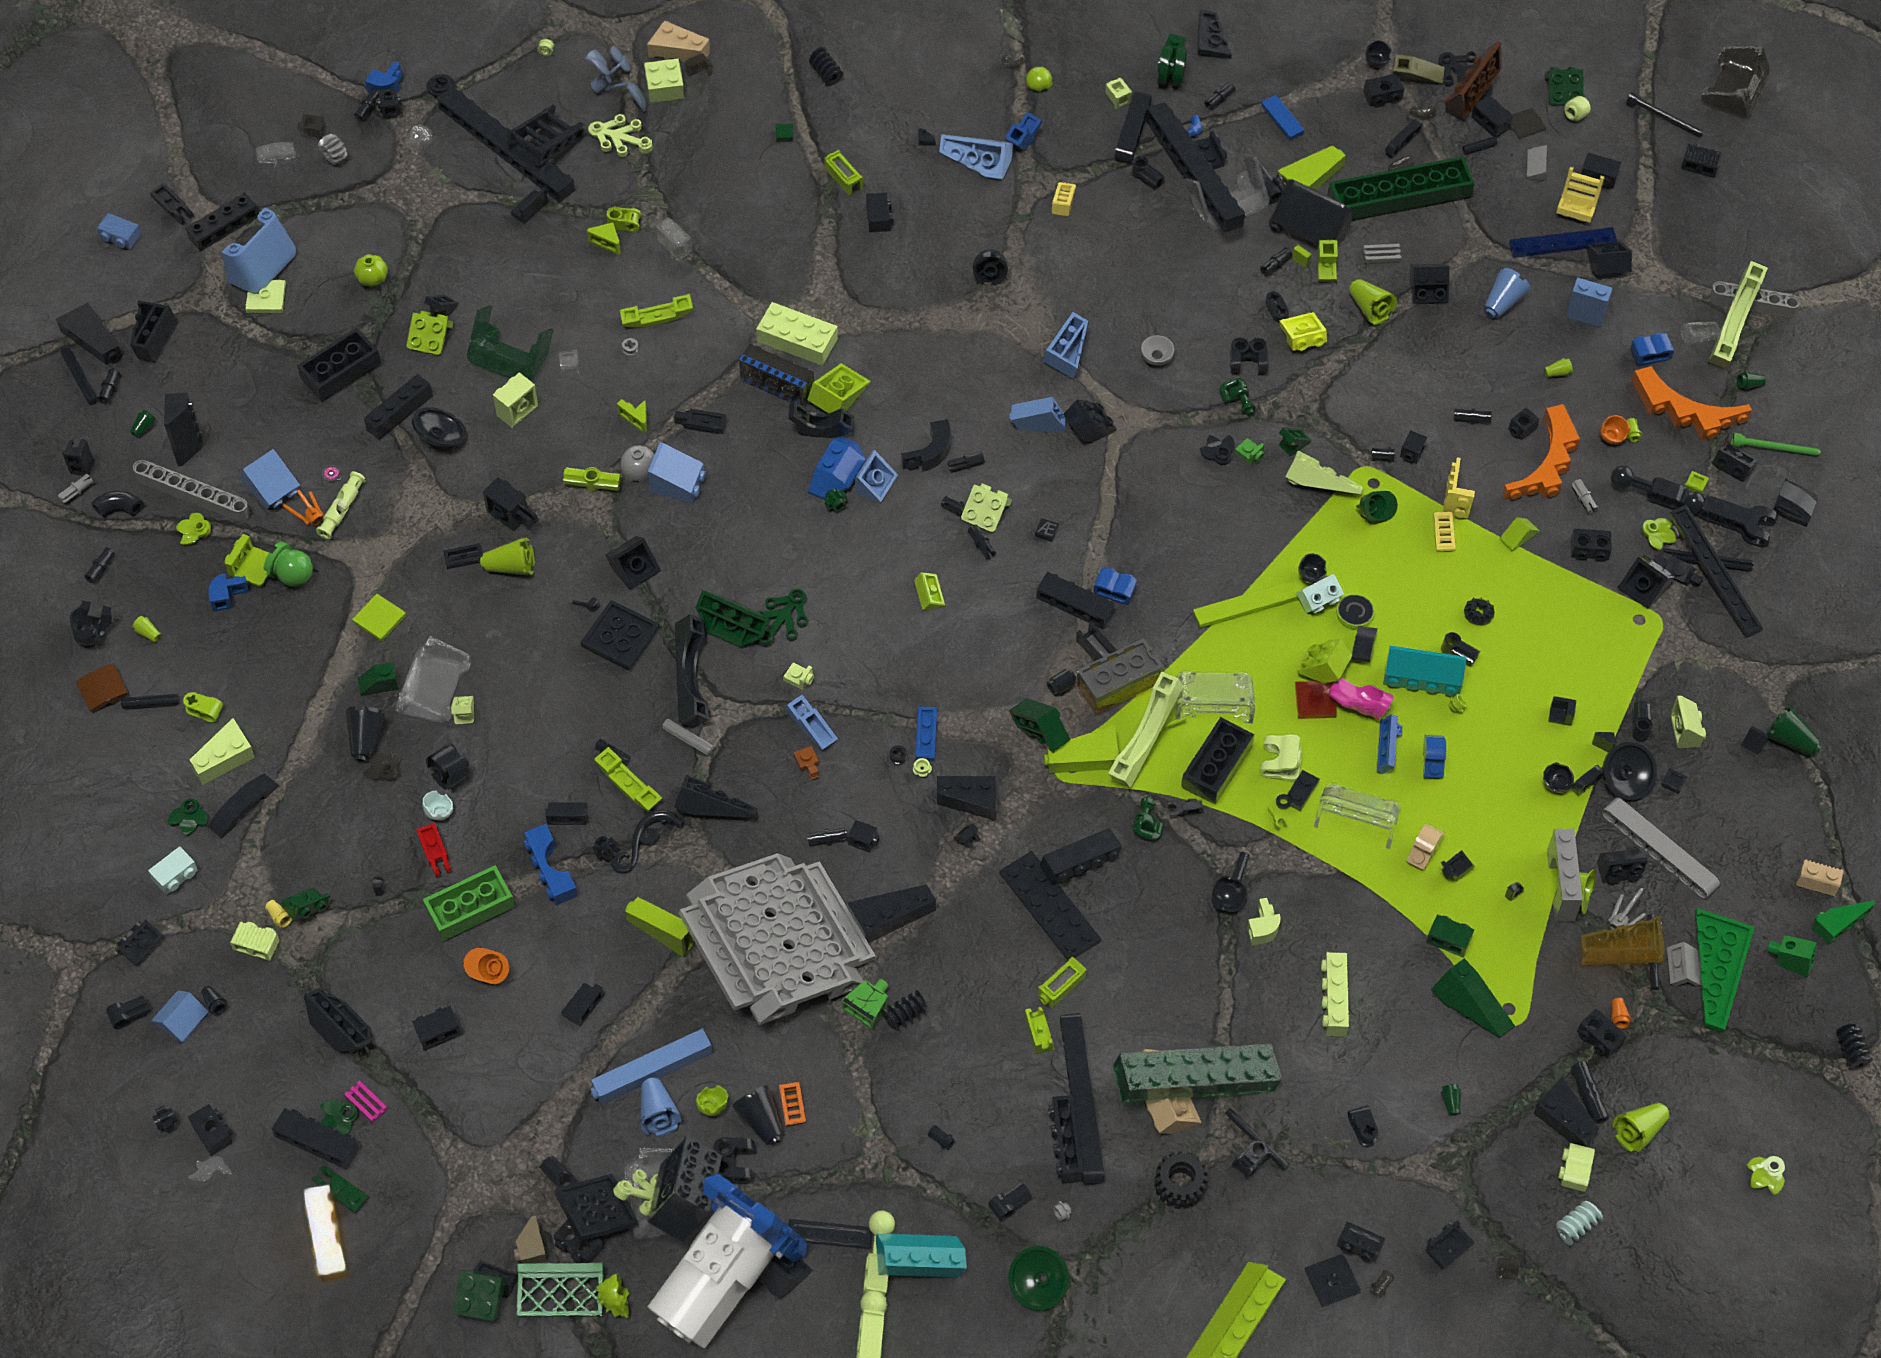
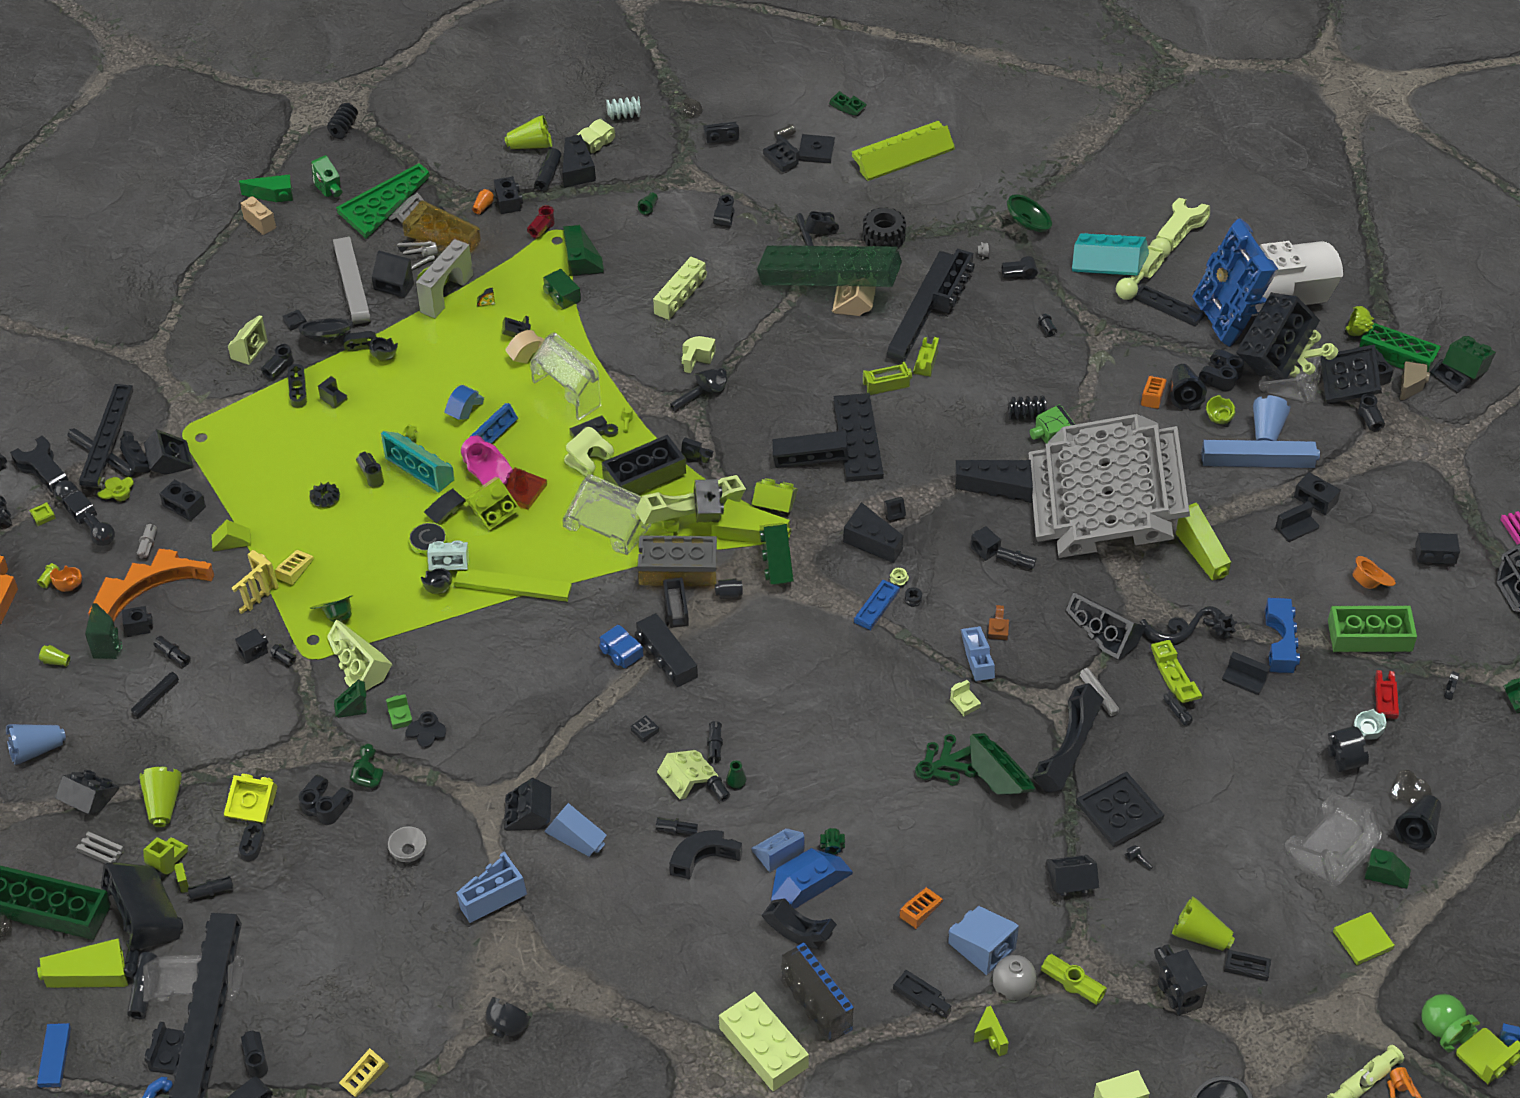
camera: 150 degrees left, 10 degrees down
(463, 709) = (1310, 803): yellowish green slope -> none
(568, 1036) = (1318, 492): none -> black brick
(739, 473) = (916, 920): none -> orange slope
(837, 389) = (754, 957): lime slope -> none
(929, 591) = (794, 723): lime slope -> none
(945, 518) = (736, 777): none -> dark green cone
(1083, 795) = (774, 496): none -> lime slope
(1129, 731) = (708, 510): none -> brick
(1146, 821) = (738, 456): dark green piece -> none
(1453, 379) = (154, 694): none -> black axle
(1534, 392) = (102, 634): none -> clear green slope
(1537, 1013) = (543, 221): none -> dark red piece
(1604, 740) = (320, 359): slope -> none
(1605, 716) = (292, 380): none -> black beam
(1755, 740) = (206, 316): black slope -> none
(1765, 1175) = (470, 89): lime plate -> none
(1793, 732) = (177, 306): dark green cone -> none

